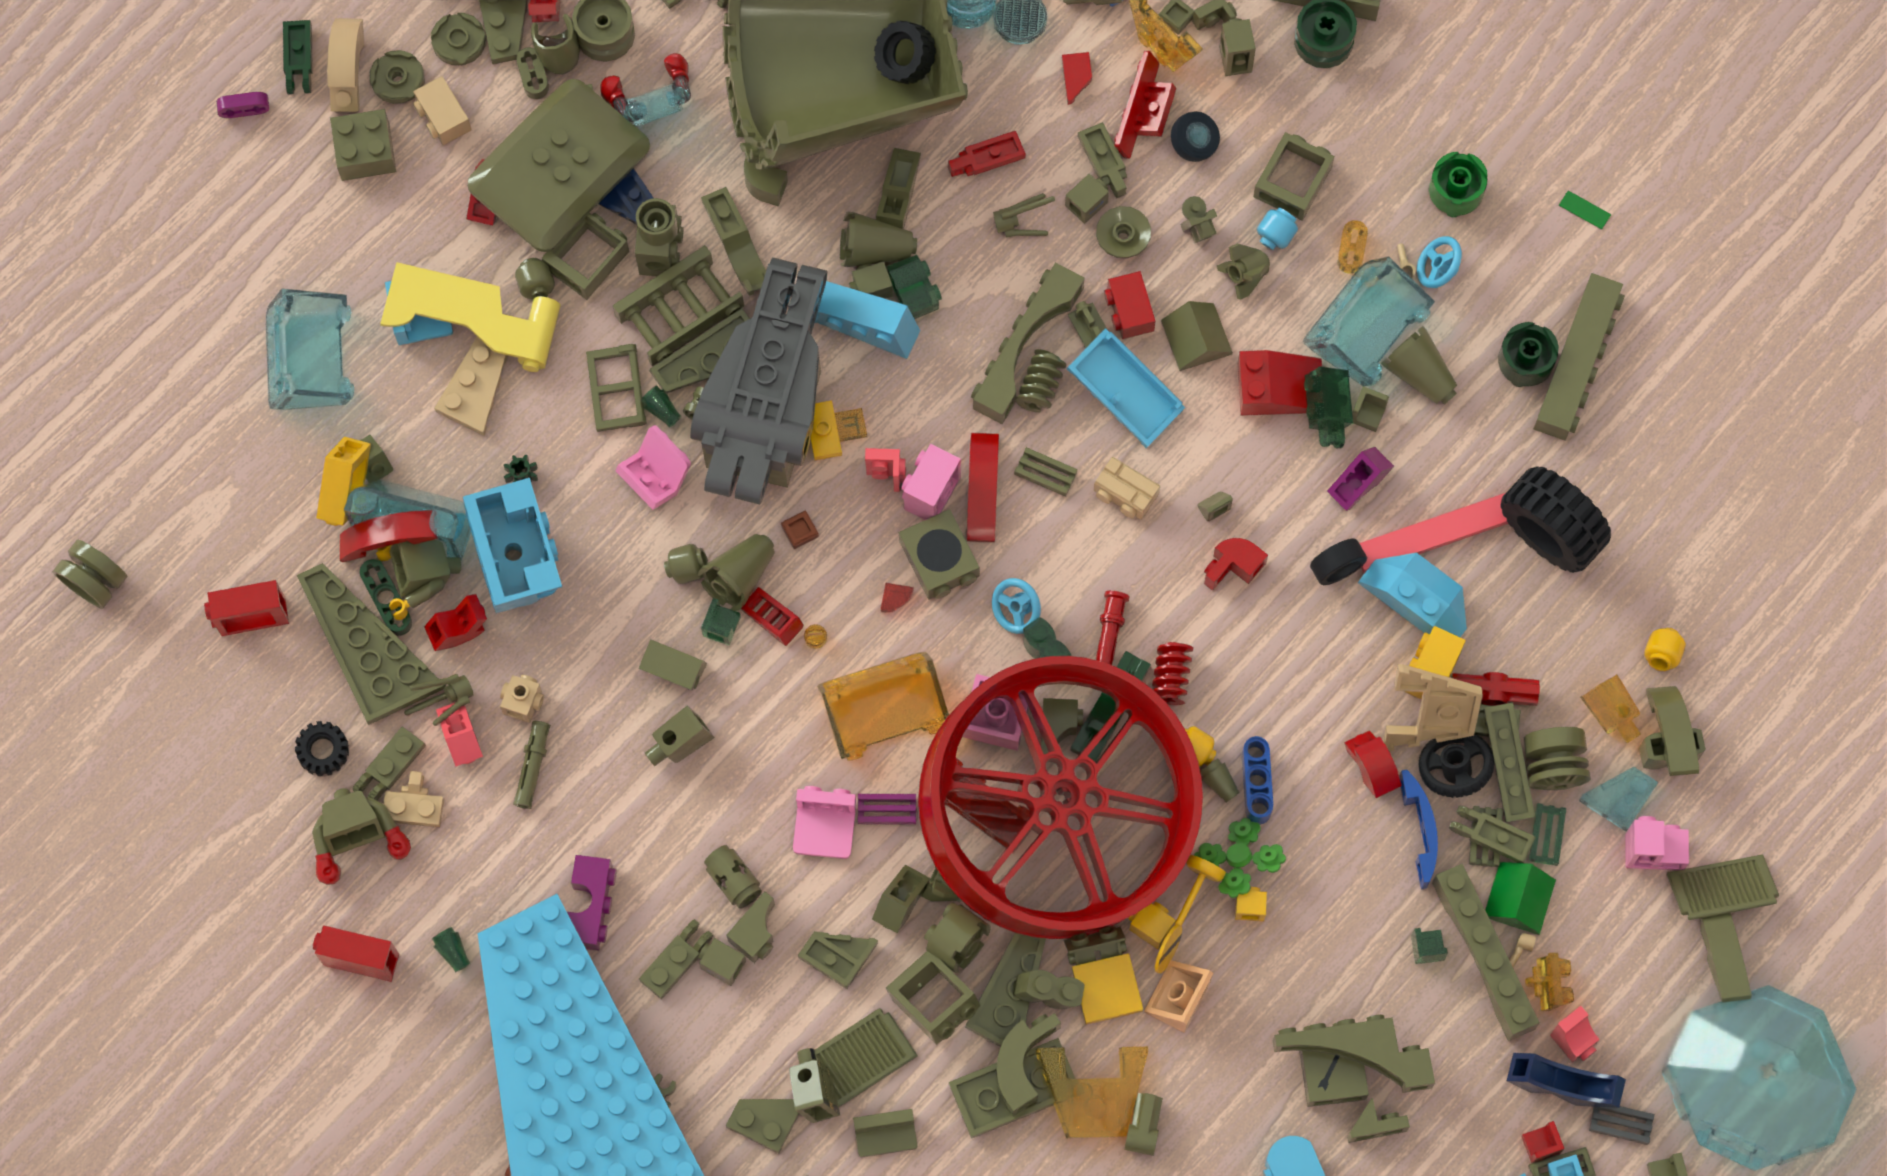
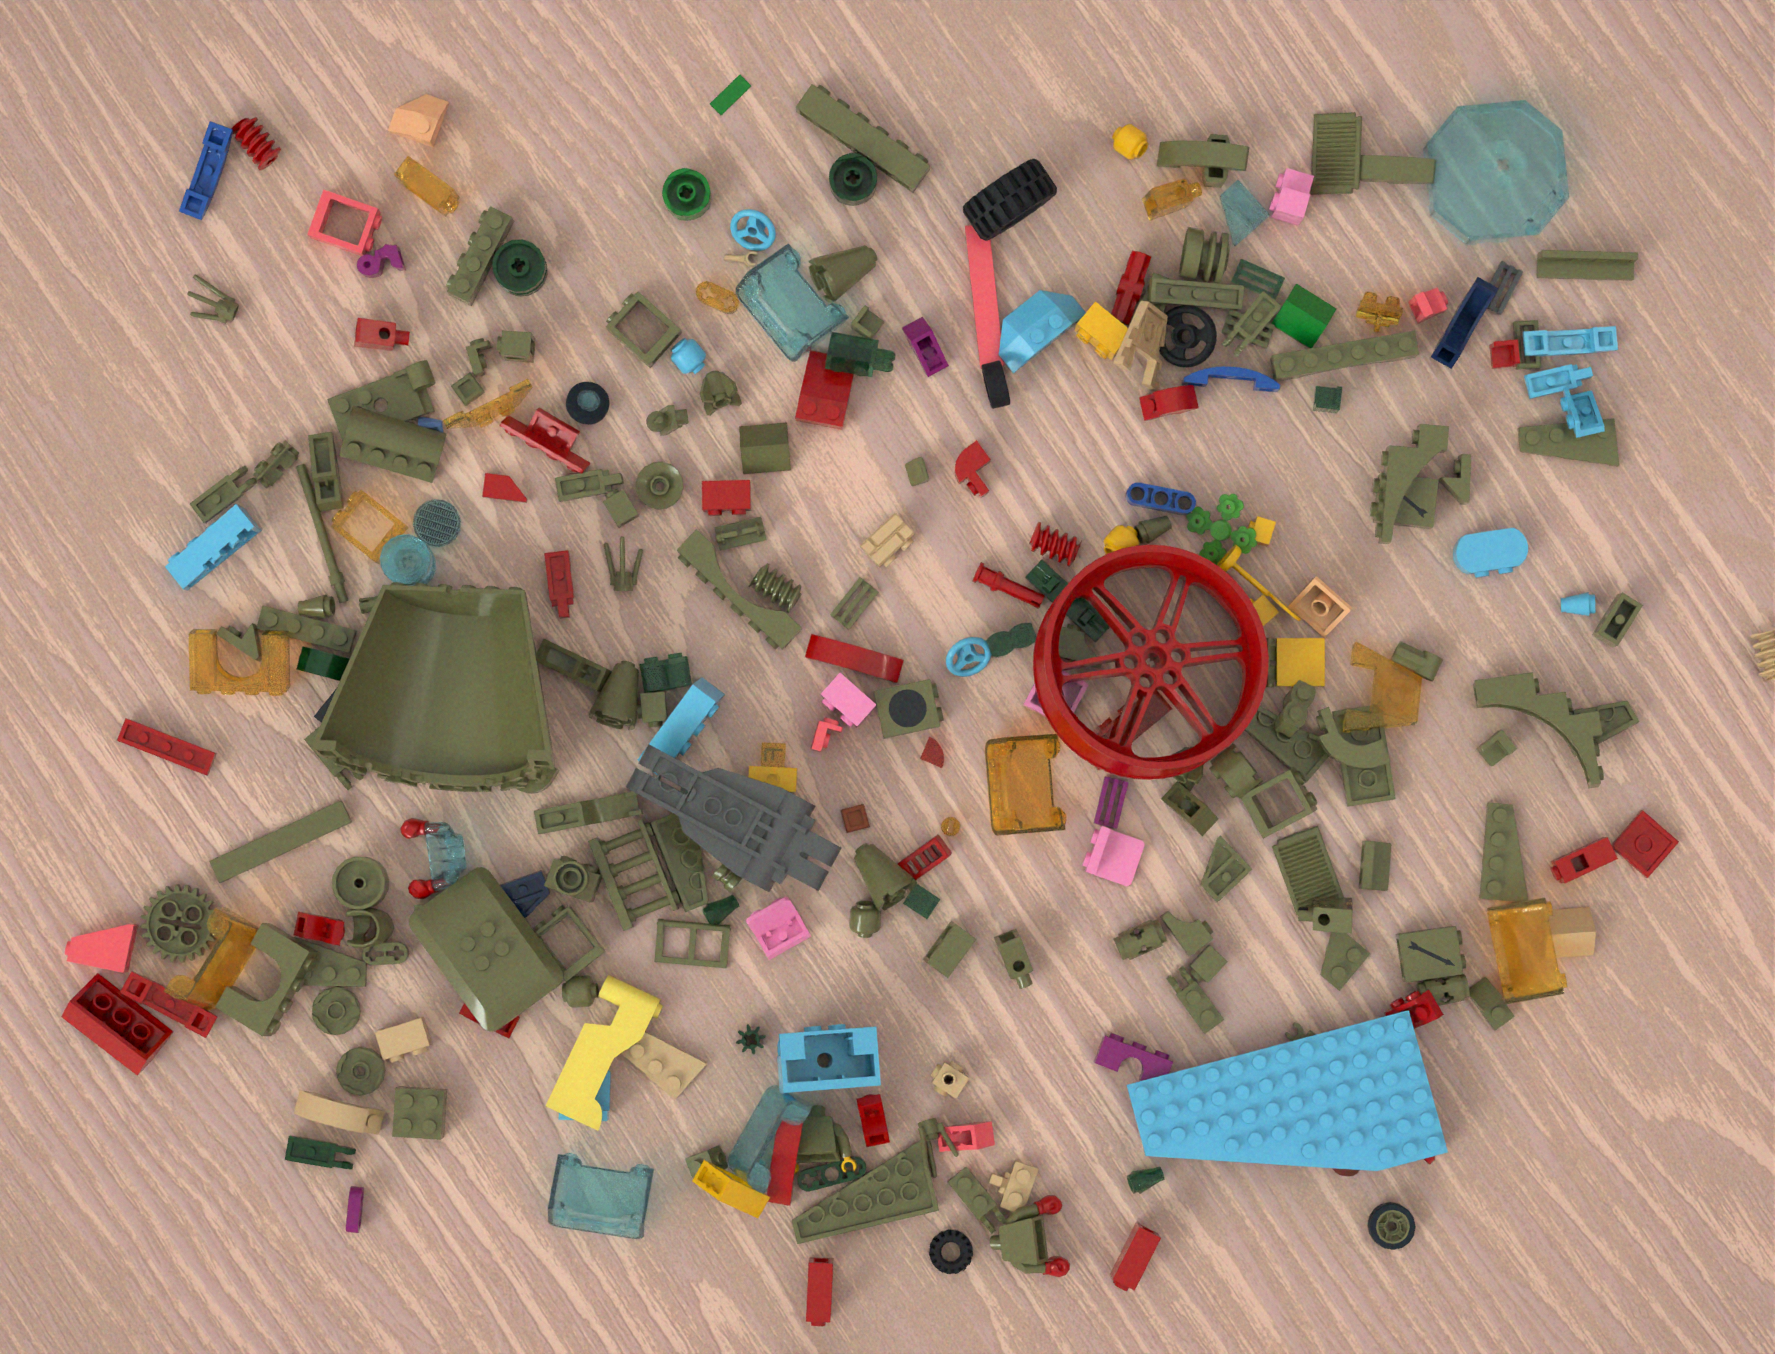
camera: 80 degrees left, 15 degrees up
(534, 754) = (1005, 1082): olive pin -> none
(923, 52) = (454, 613): black tyre -> none
(1126, 387) = (800, 519): medium azure container -> none
(1524, 942) = (1341, 323): tan hand -> none

